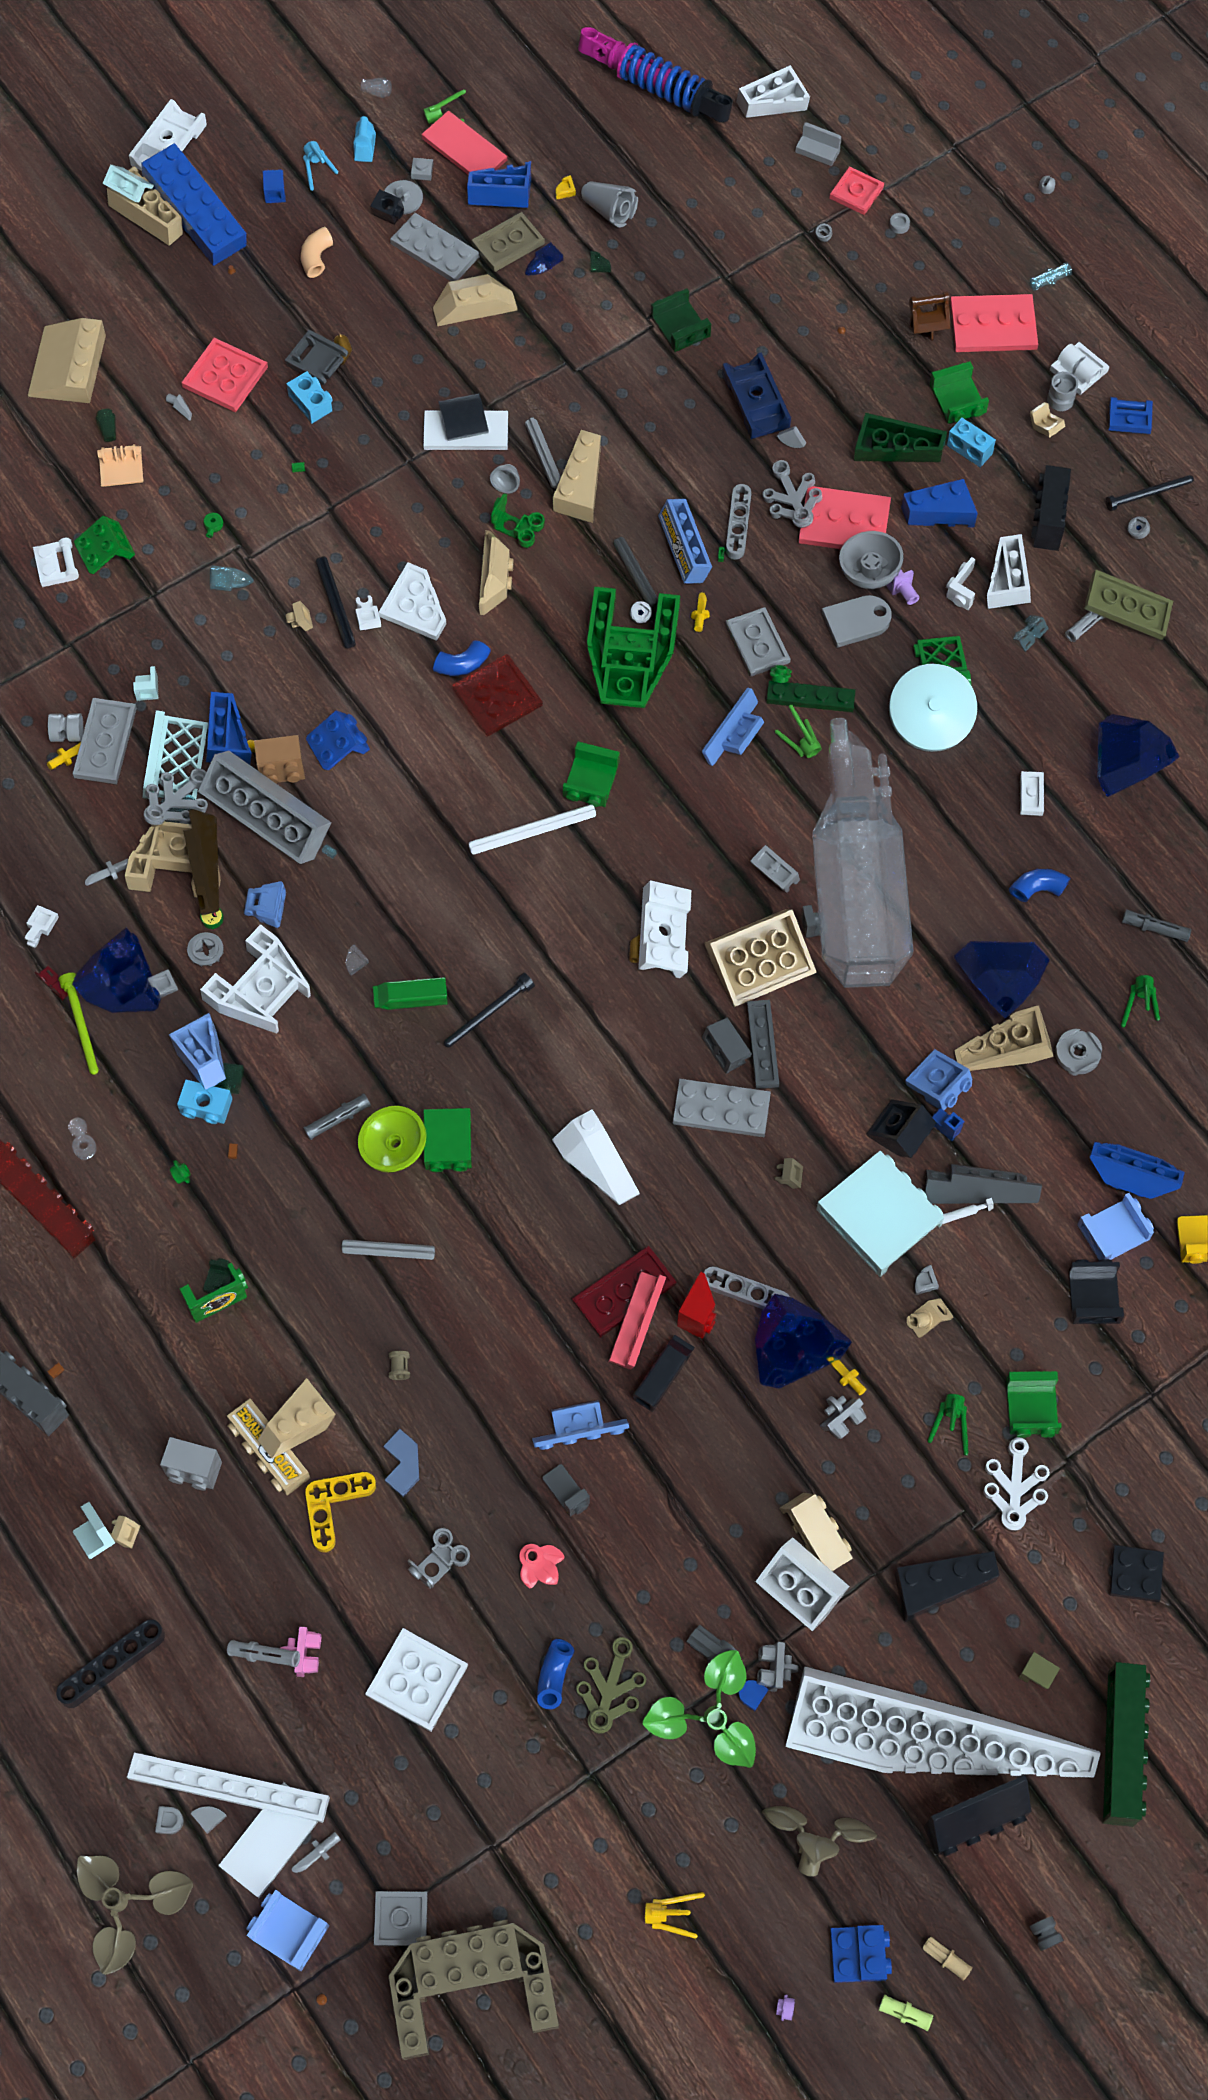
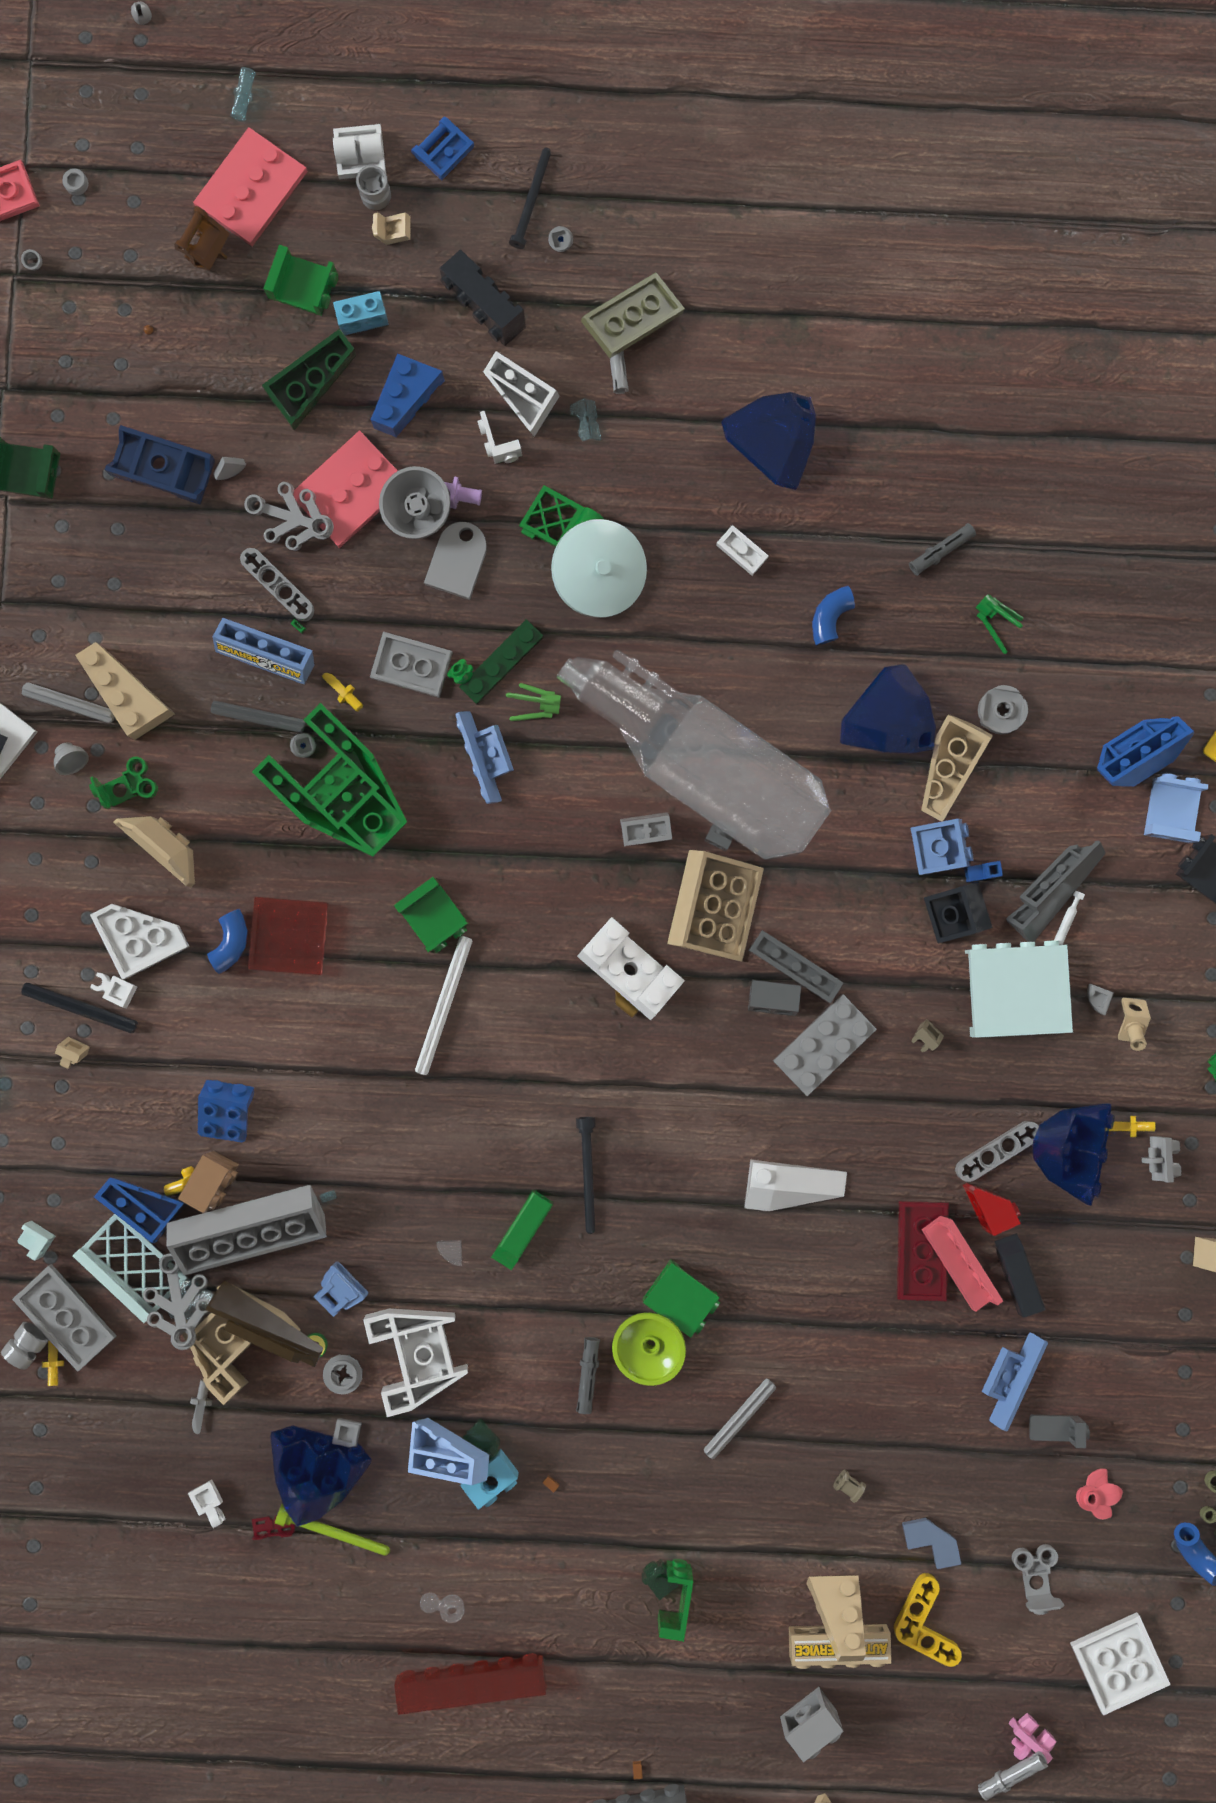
camera: 55 degrees left, 20 degrees up
(180, 1172) = (539, 1545): green plate -> none

